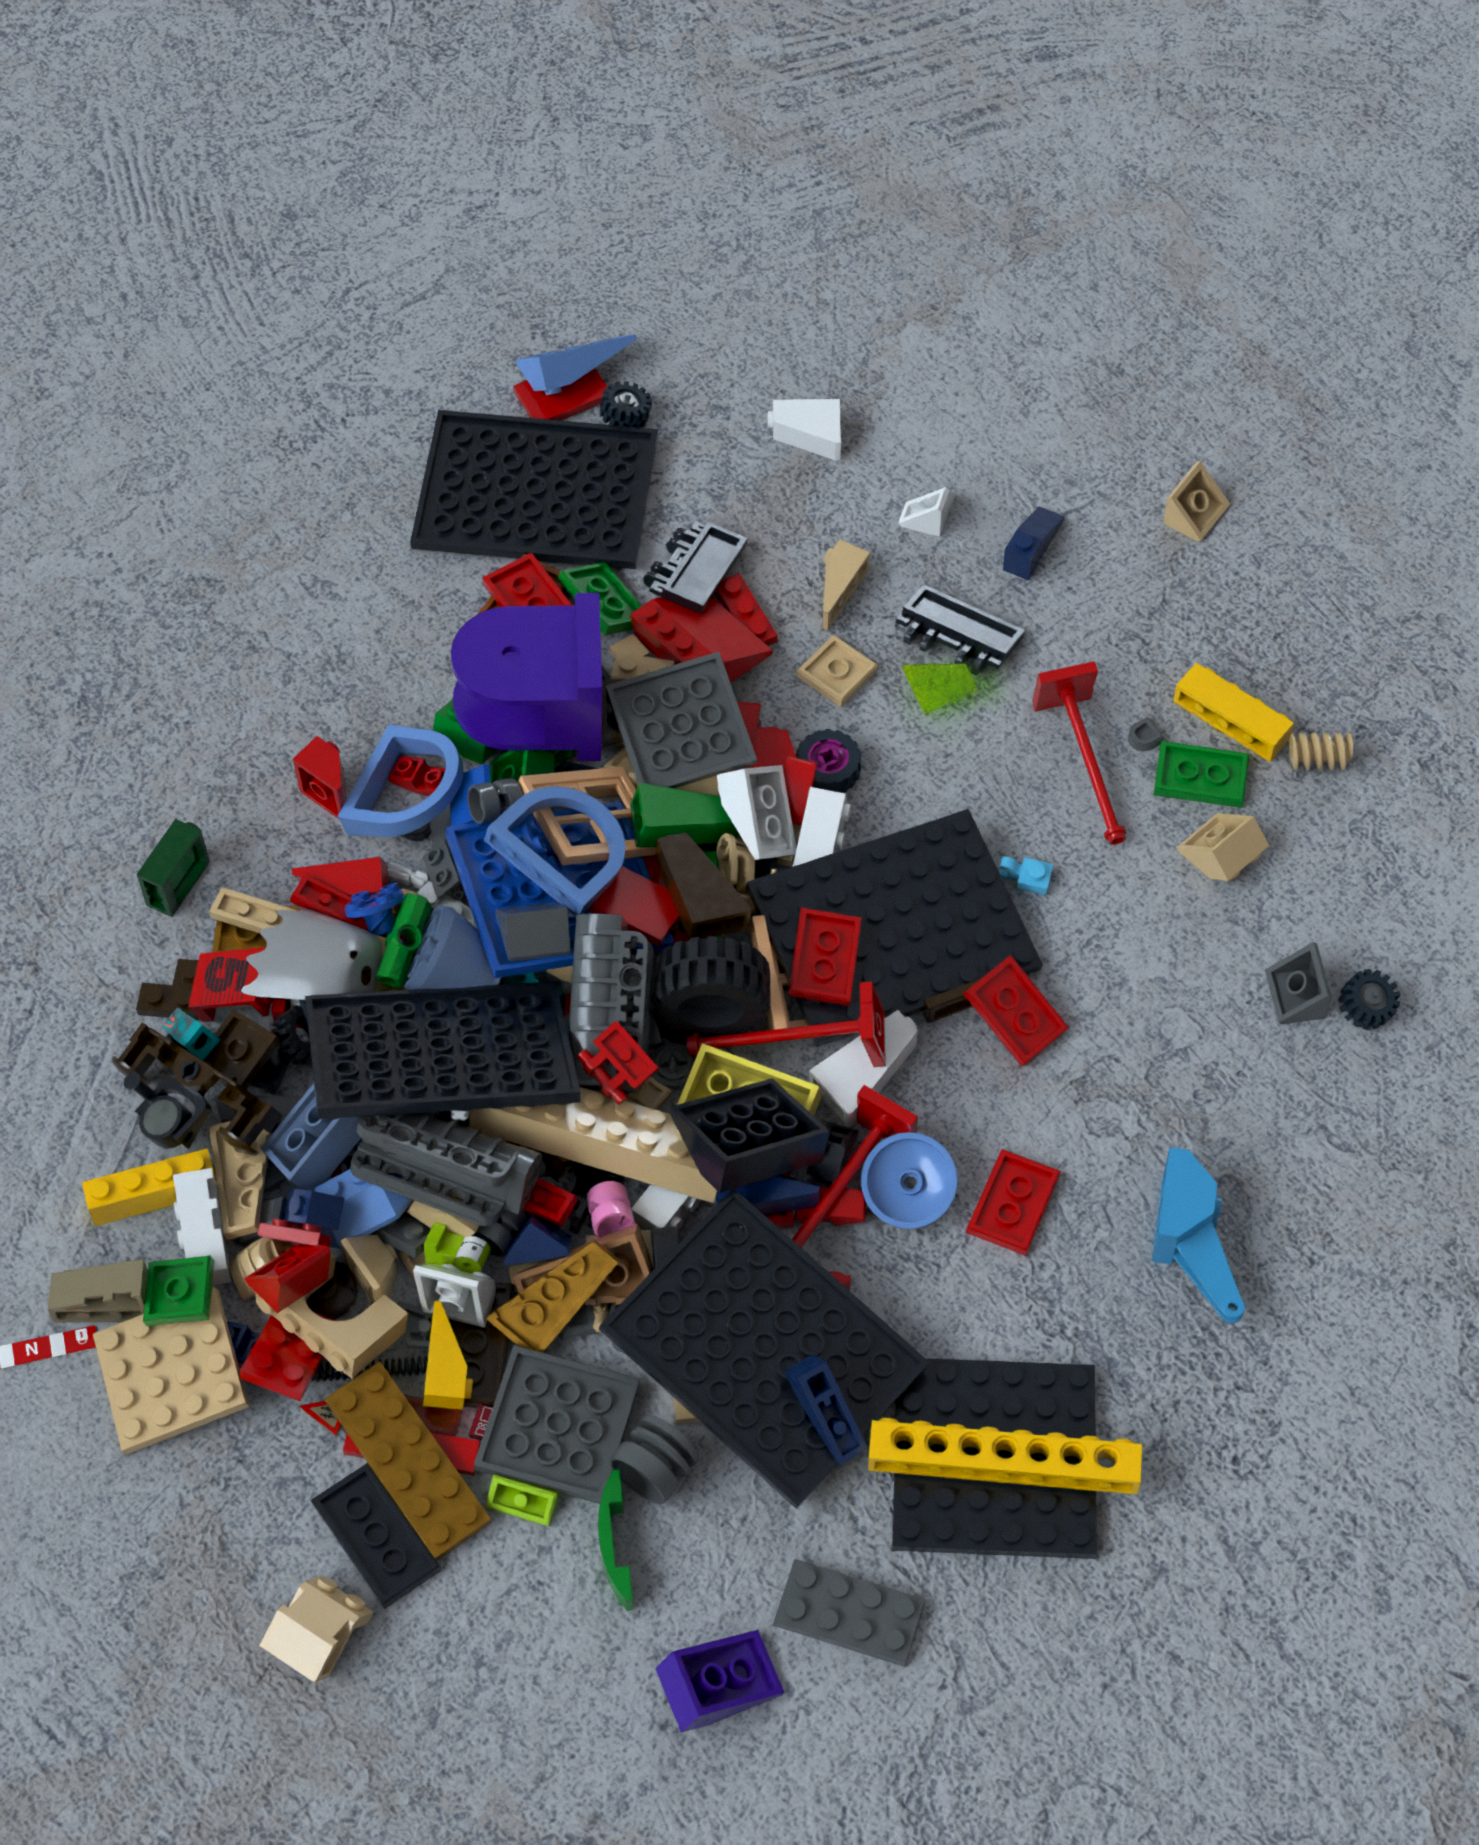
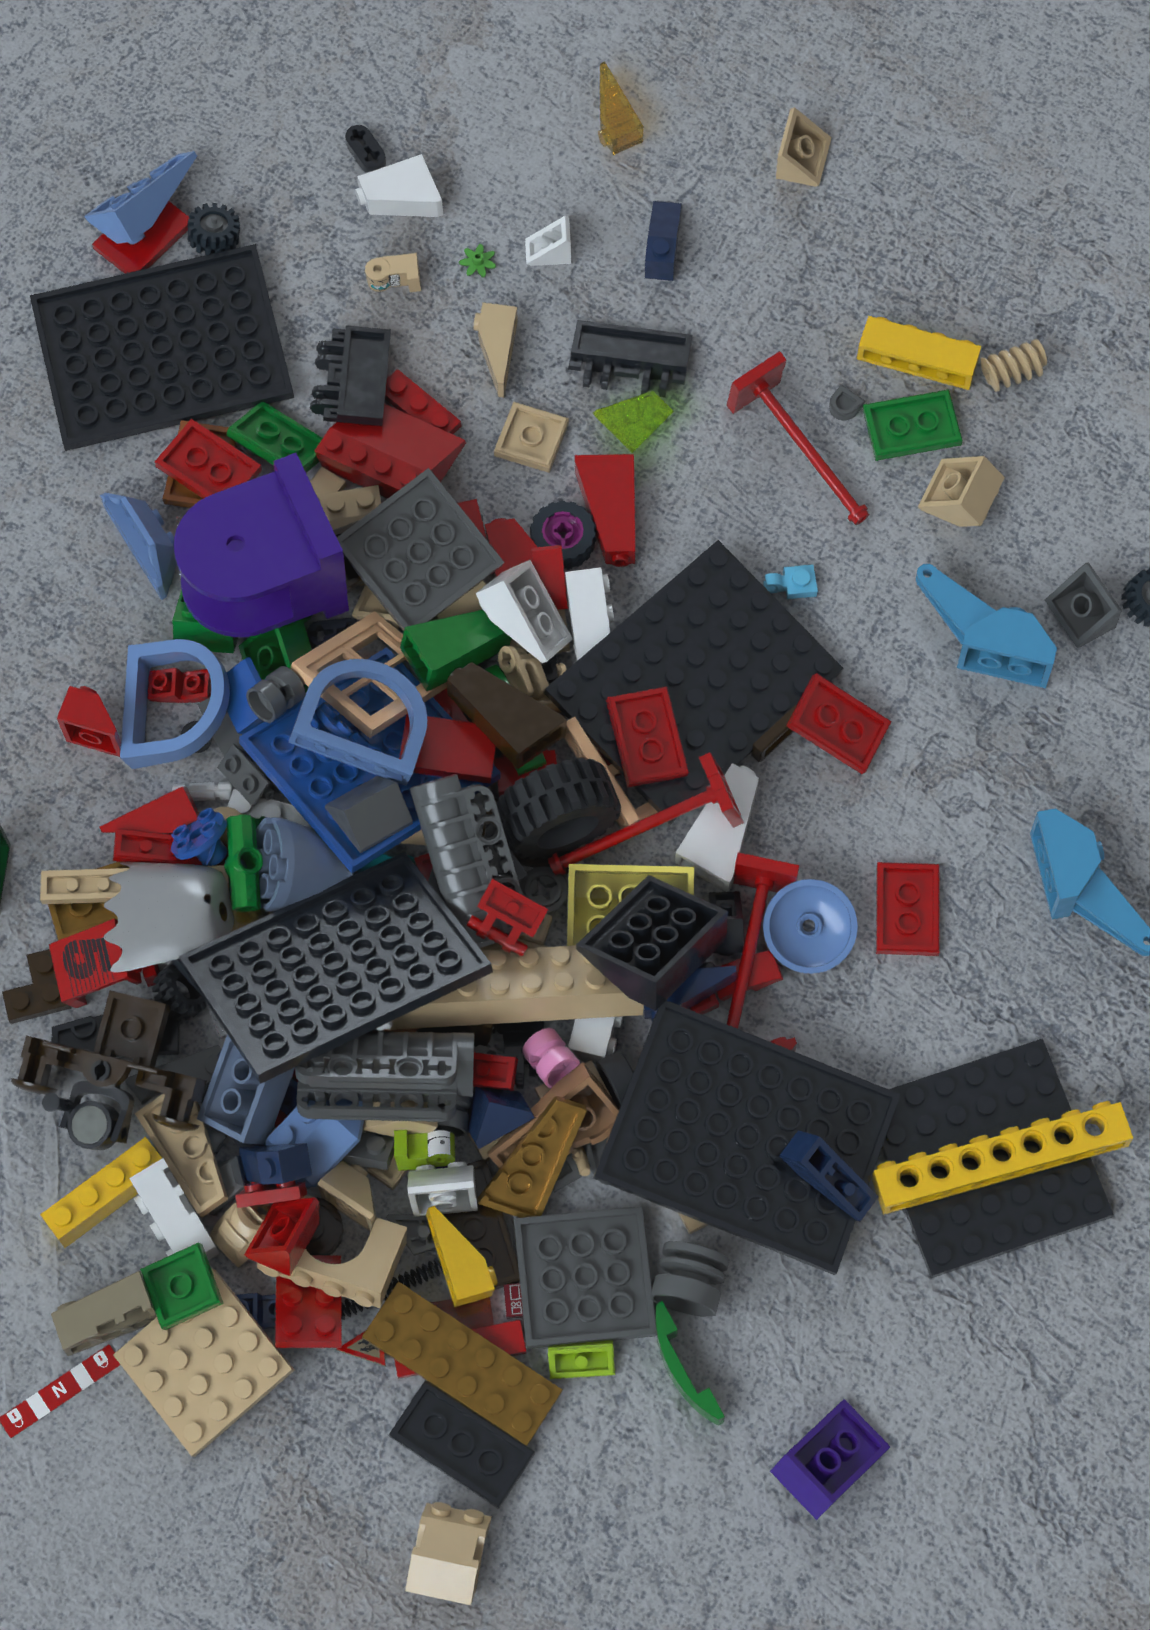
camera: 20 degrees left, 10 degrees up
(188, 1031) = (77, 1029): teal leg -> none
(443, 624) = (145, 538): none -> medium blue wedge
(772, 491) = (393, 272): none -> tan leg
(798, 382) = (370, 147): none -> black beam
(849, 1612) = (917, 1351): dark grey plate -> none
(854, 507) = (478, 261): none -> bright green plant
(886, 746) = (610, 499): none -> red slope
(1033, 424) = (618, 121): none -> clear yellow slope
(1193, 984) = (993, 642): none -> dark azure slope

